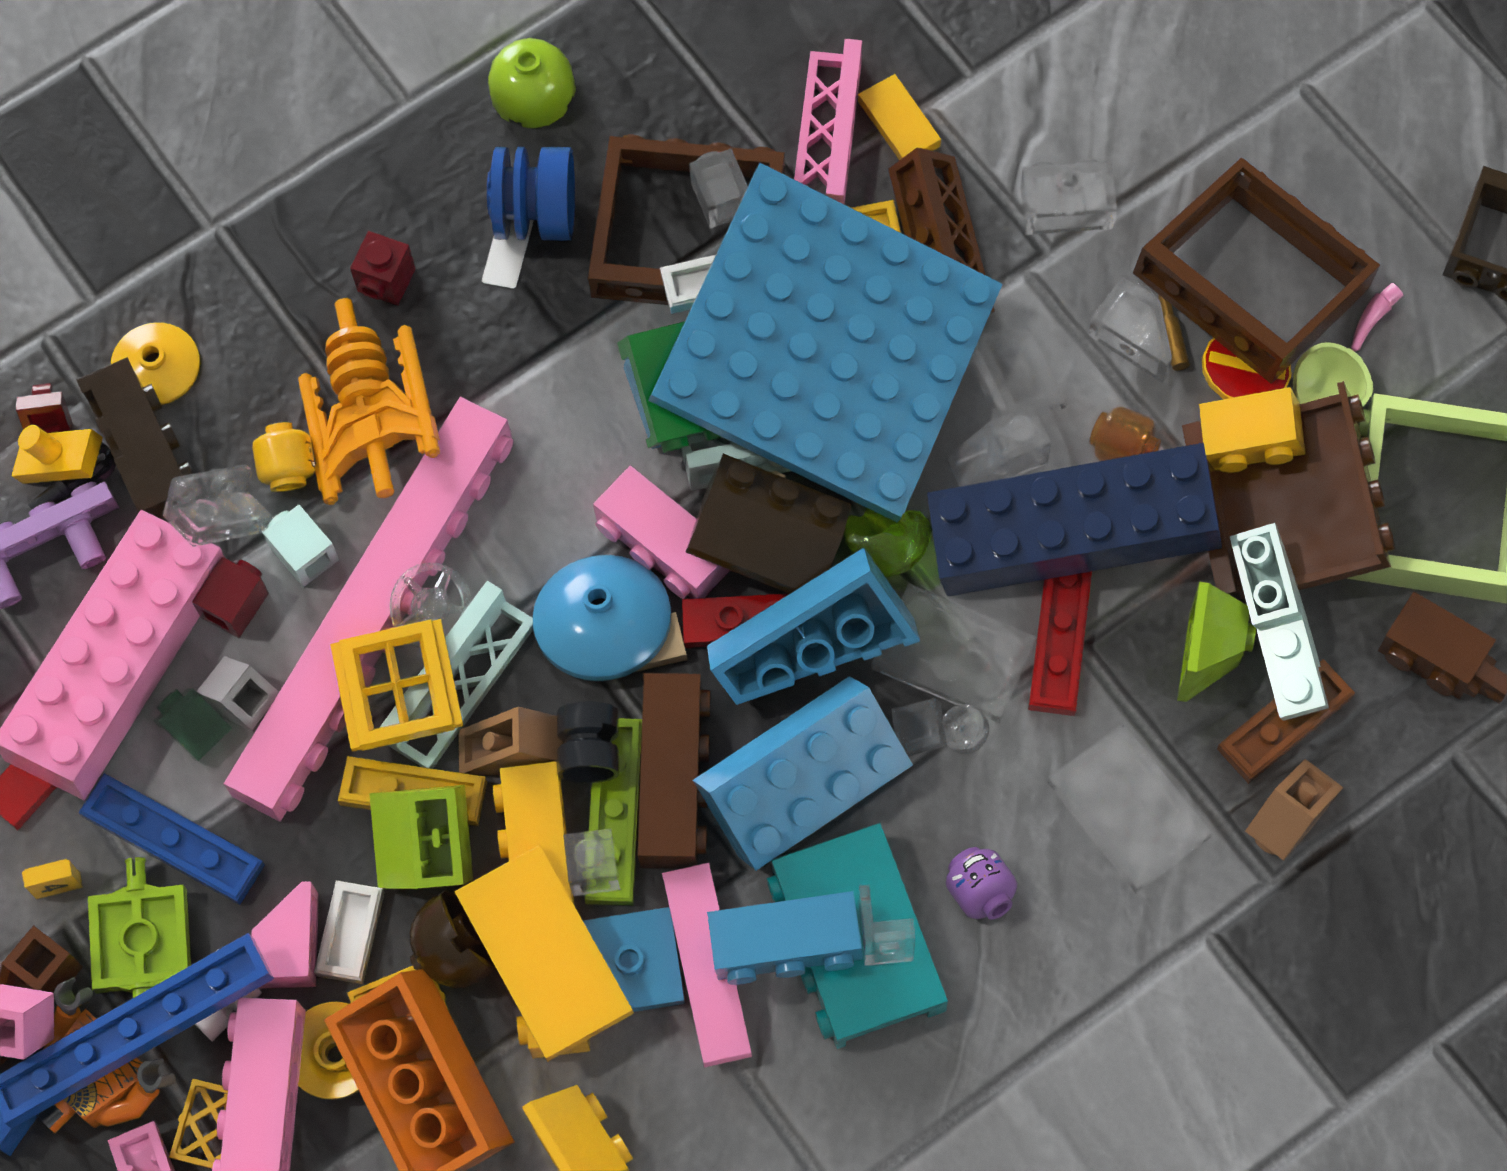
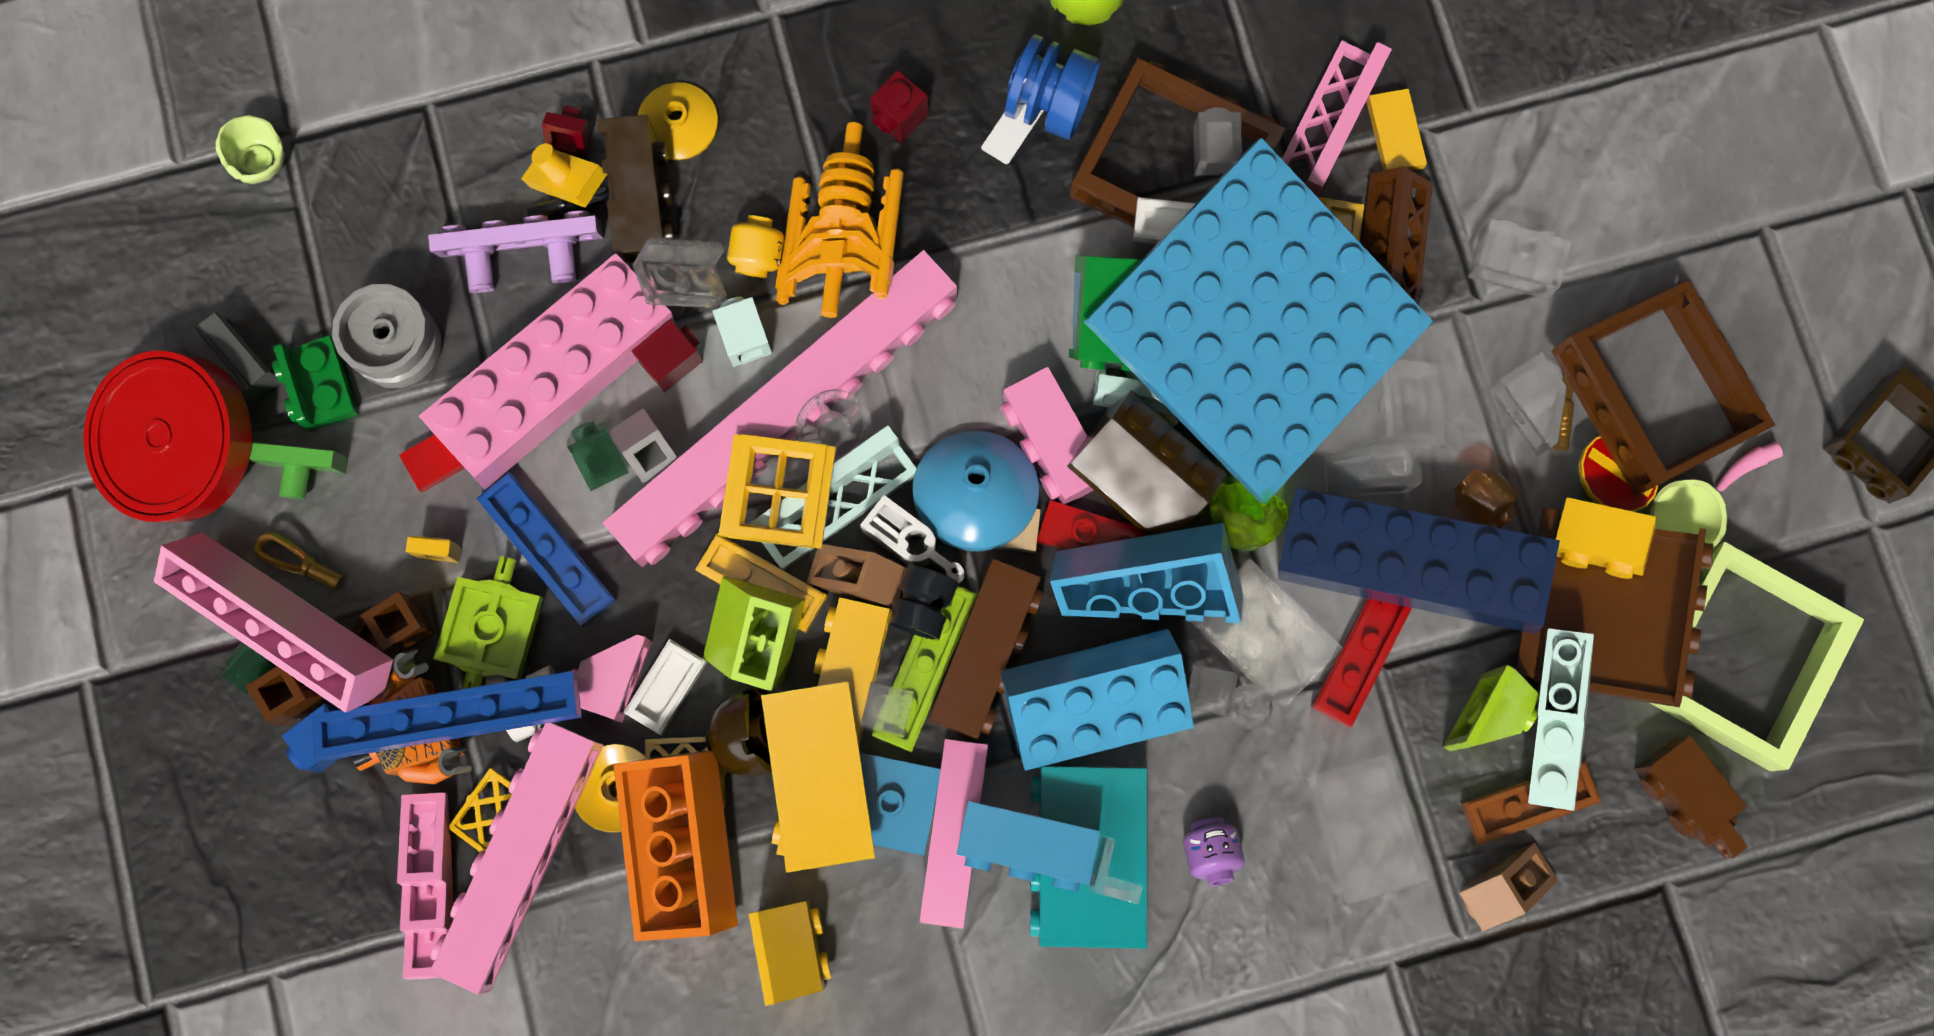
camera: 15 degrees right, 10 degrees up
(531, 684) = (908, 528): none -> white piece

